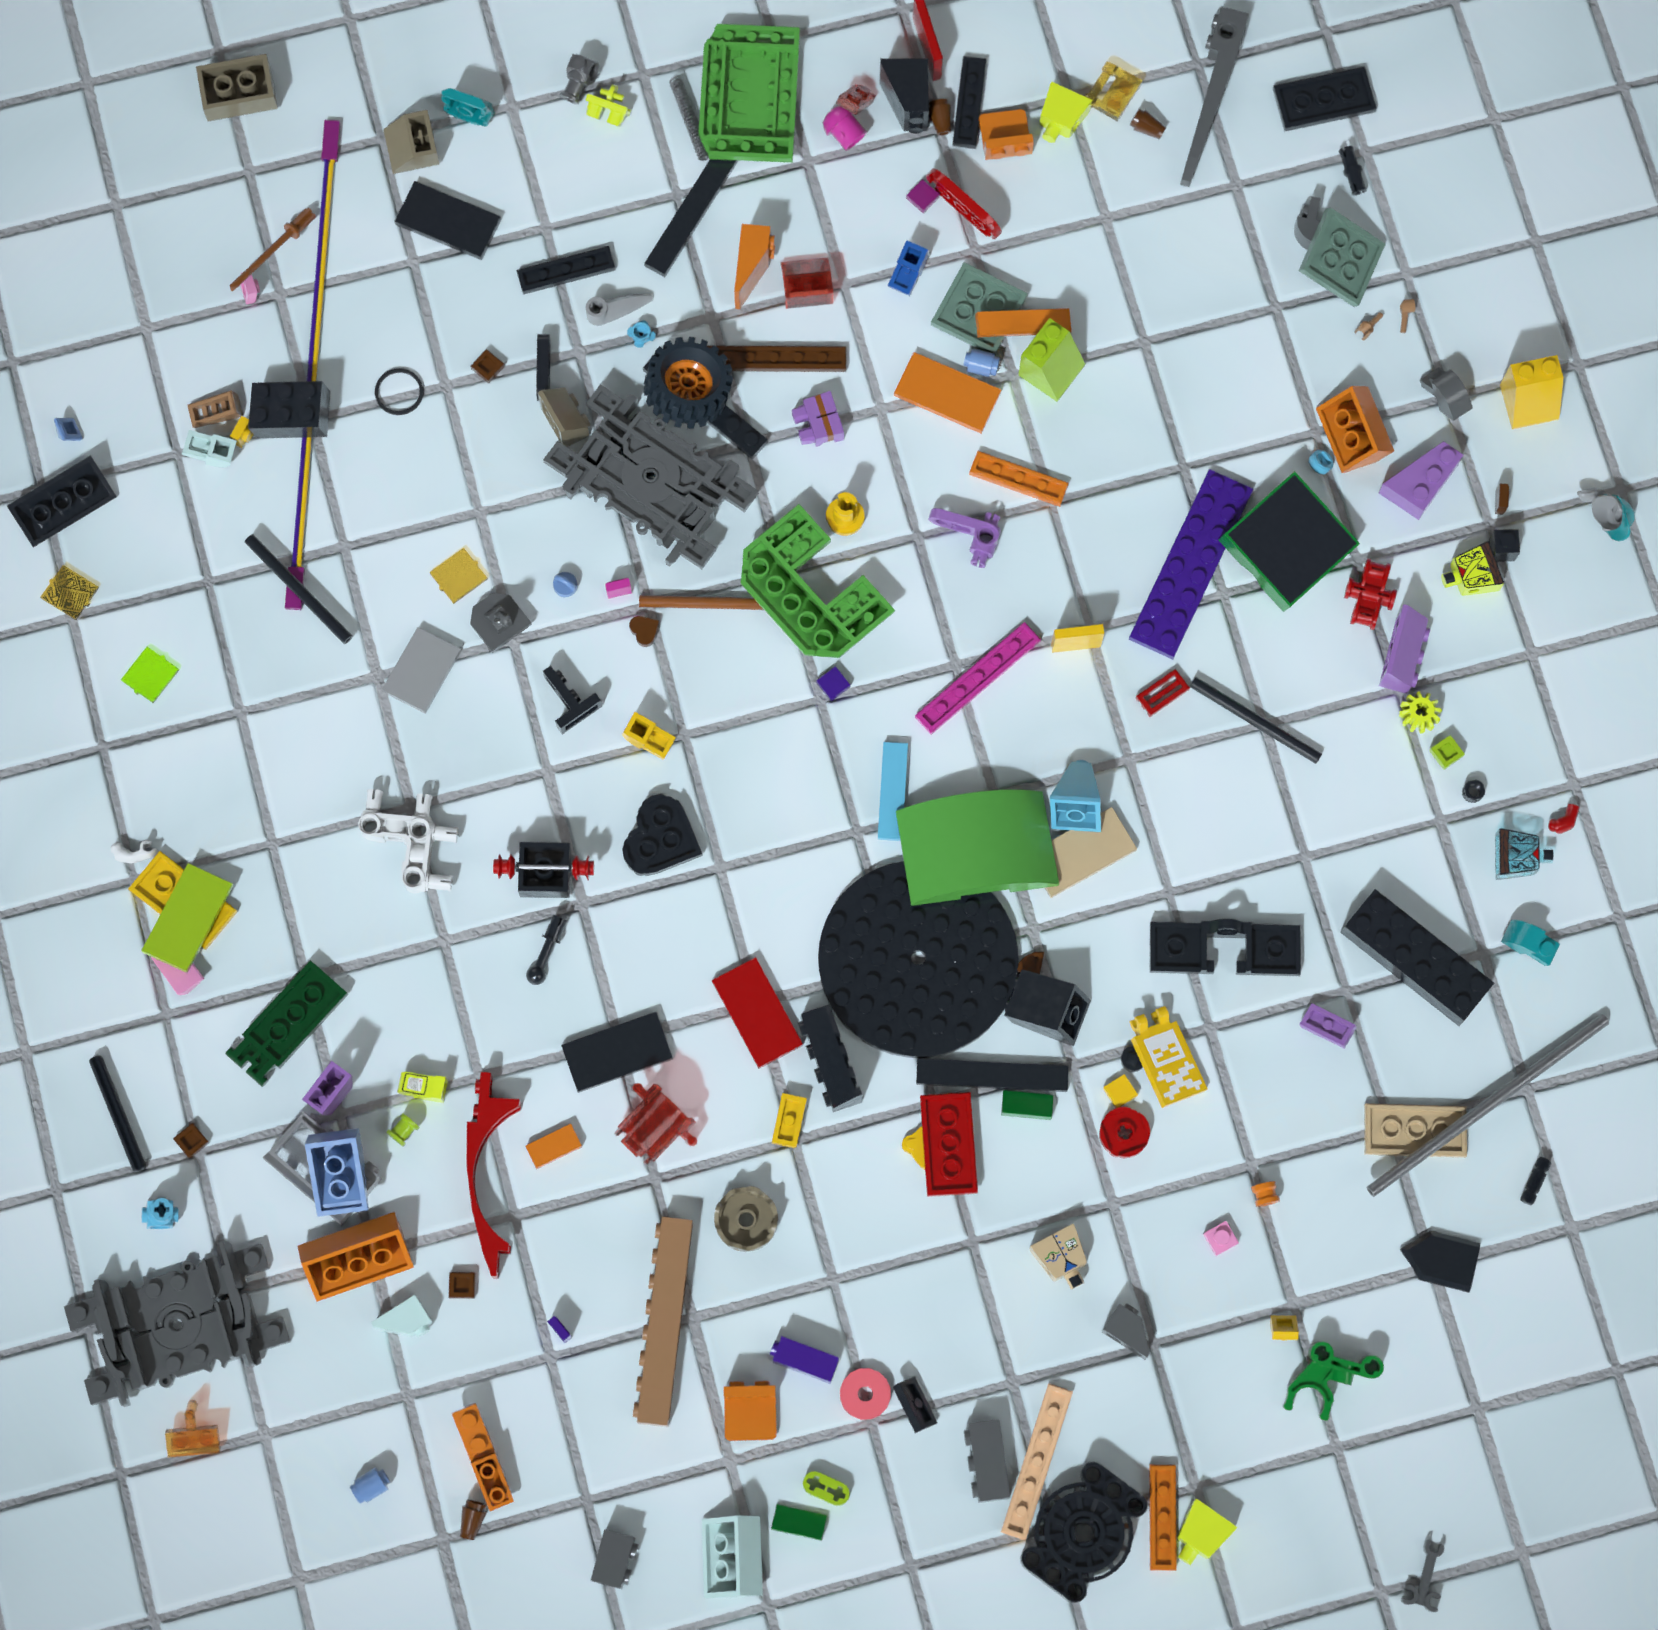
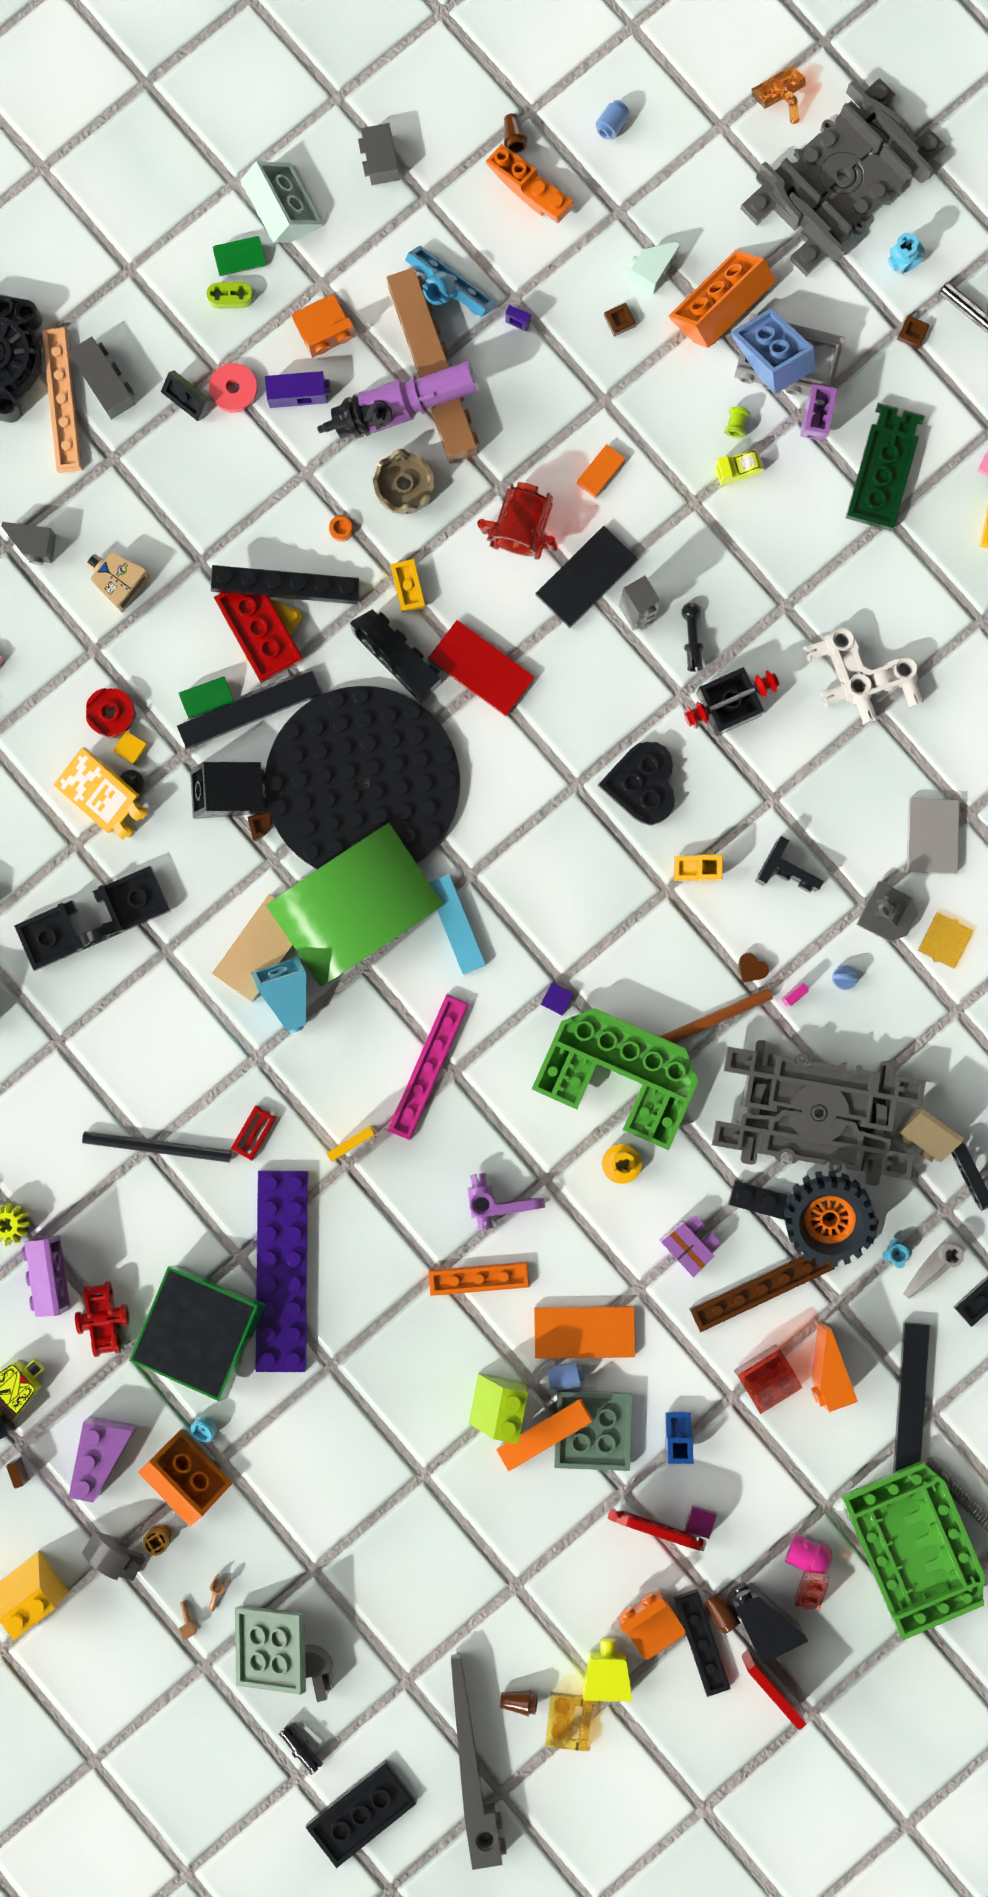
camera: 155 degrees right, 10 degrees up
(489, 1115) = (670, 469): red slope -> none
(584, 991) = (639, 603): none -> dark grey brick
(610, 1395) = (446, 284): none -> dark azure plate
(715, 1291) = (399, 401): none -> medium lavender piece
(825, 1207) = (341, 528): none -> orange tile
(904, 1171) = (284, 584): none -> black plate
(1400, 395) = (162, 1538): none -> pearl gold wheel

